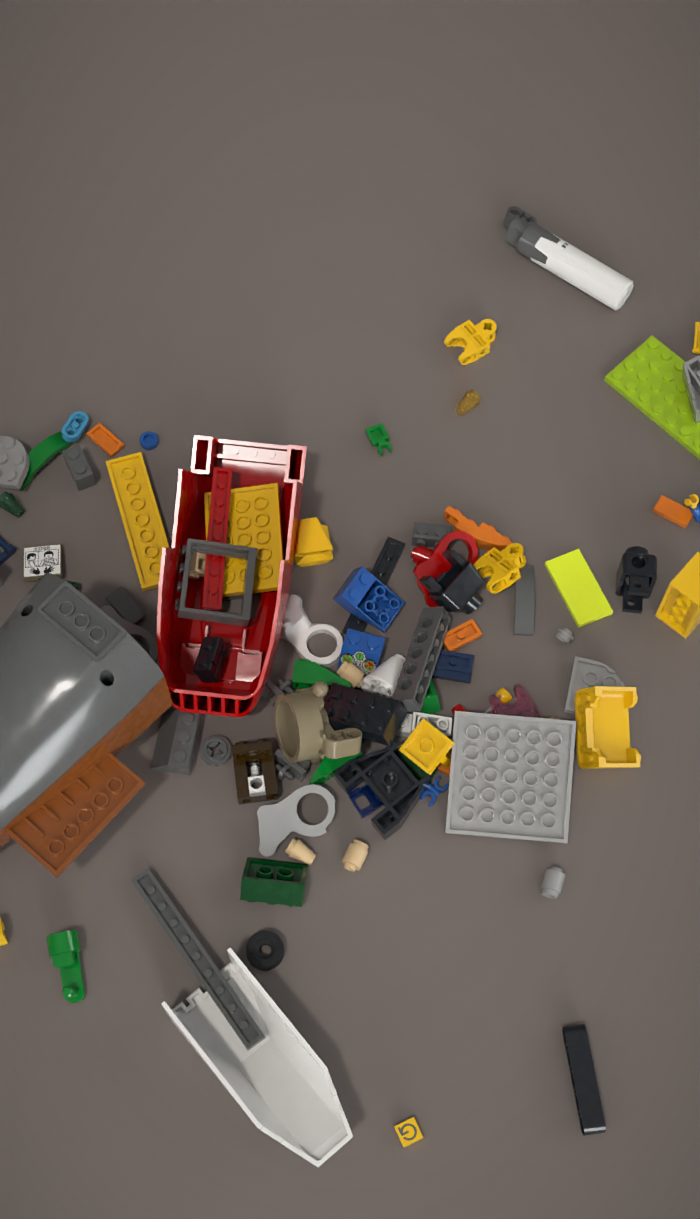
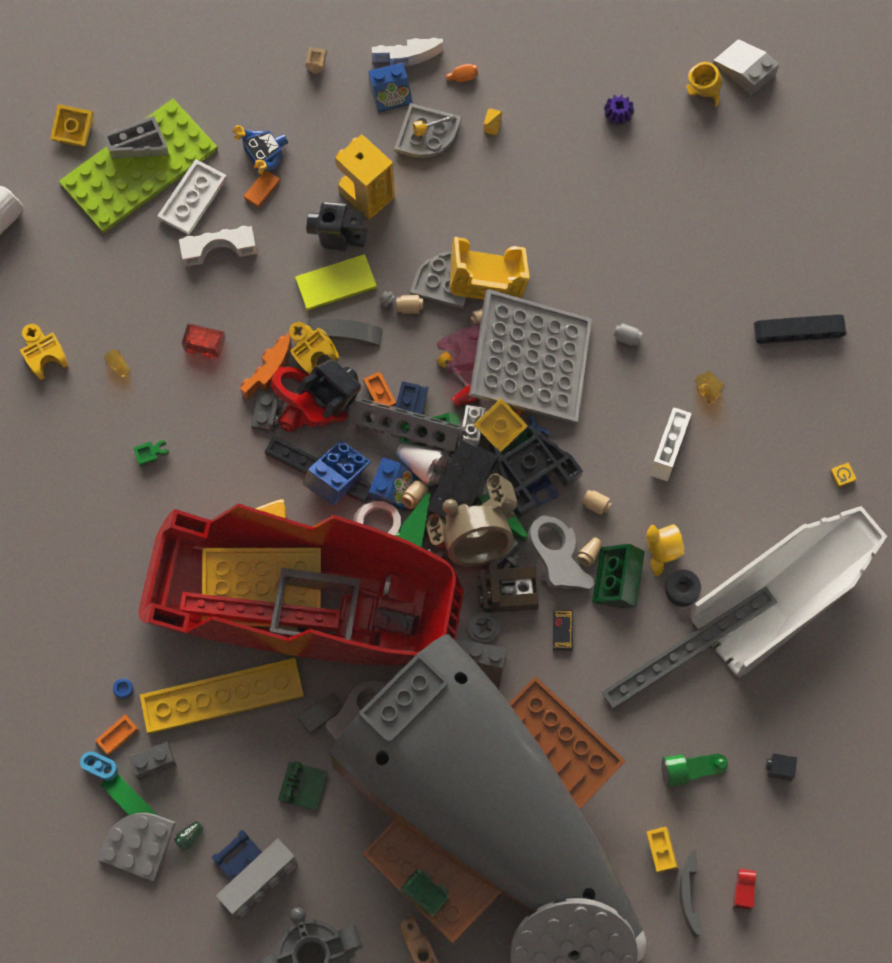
camera: 85 degrees left, 5 degrees up
(42, 560) = (262, 800): tile -> none
(68, 1060) = (781, 766): none -> black brick
(215, 828) = (562, 629): none -> black tile
(308, 925) = (664, 546): none -> yellow piece
(428, 932) = (670, 444): none -> white slope
(498, 472) = (203, 340): none -> clear red brick
(500, 973) = (709, 386): none -> clear yellow brick
(561, 657) = (409, 304): none -> tan brick
(595, 456) = (196, 248): none -> white arch
(653, 449) = (192, 197): none -> white plate

